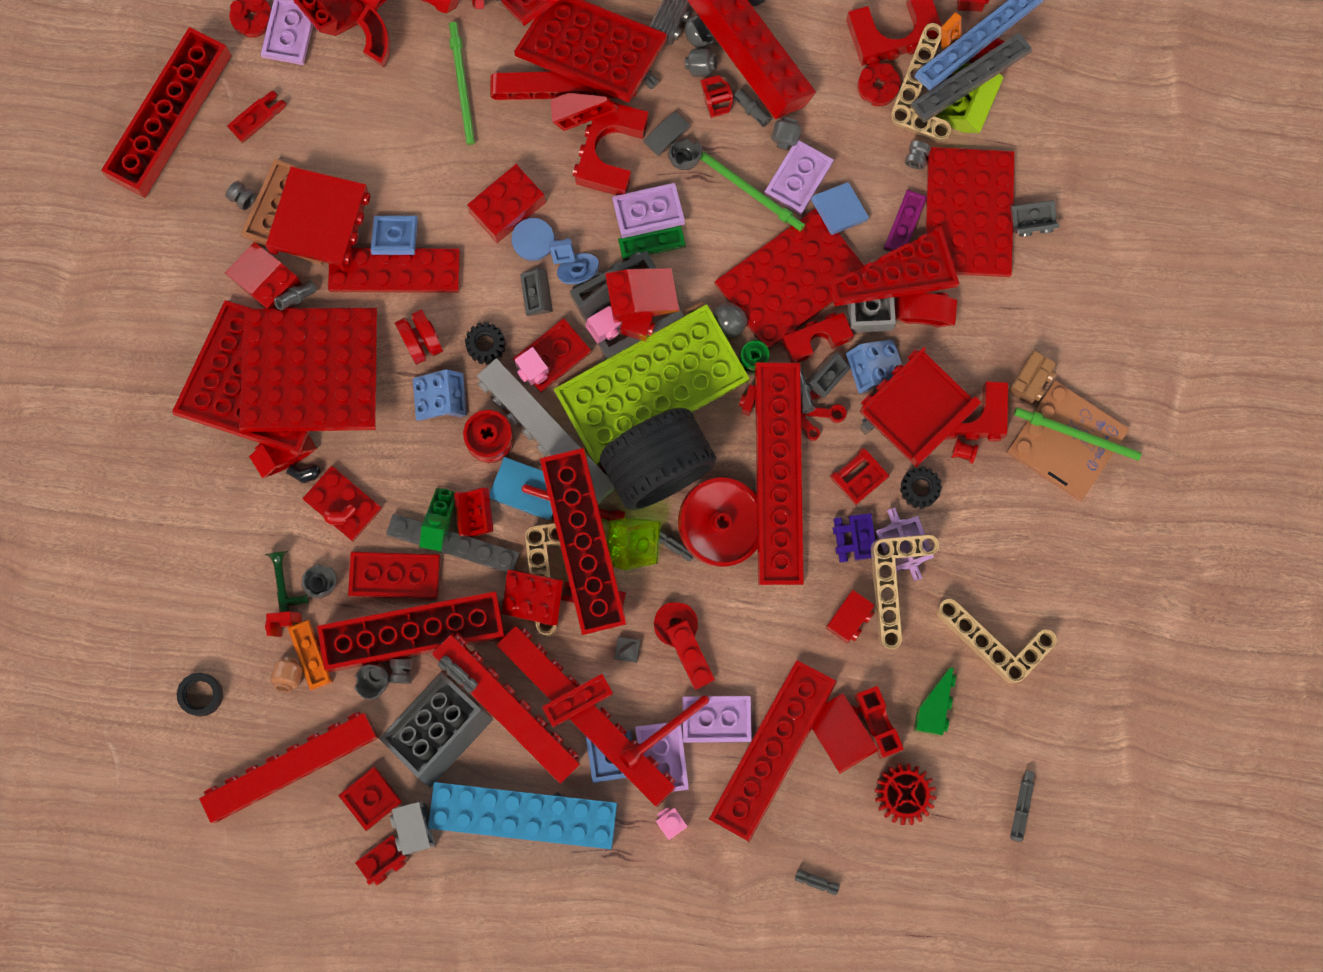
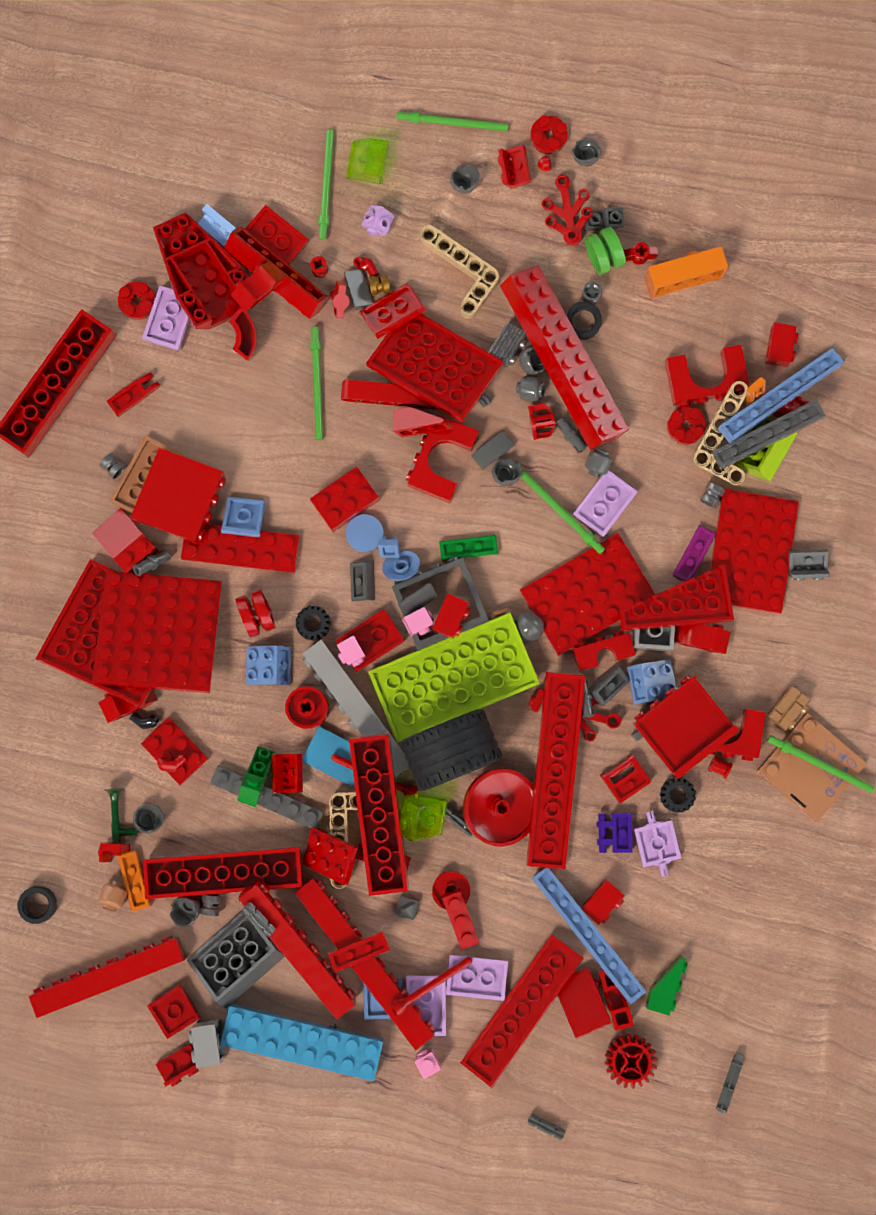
camera: 10 degrees right, 5 degrees up
(394, 575) = (213, 819): red tile -> none
(641, 293) = (454, 601): red slope -> none
(648, 210) = (468, 519): lavender plate -> none
(752, 353) = (546, 662): green wheel -> none
(839, 208) = (637, 536): medium blue tile -> none
(840, 653) = (589, 935): none -> medium blue plate
(890, 581) = (640, 876): tan beam -> none
(992, 644) = (721, 941): tan beam -> none

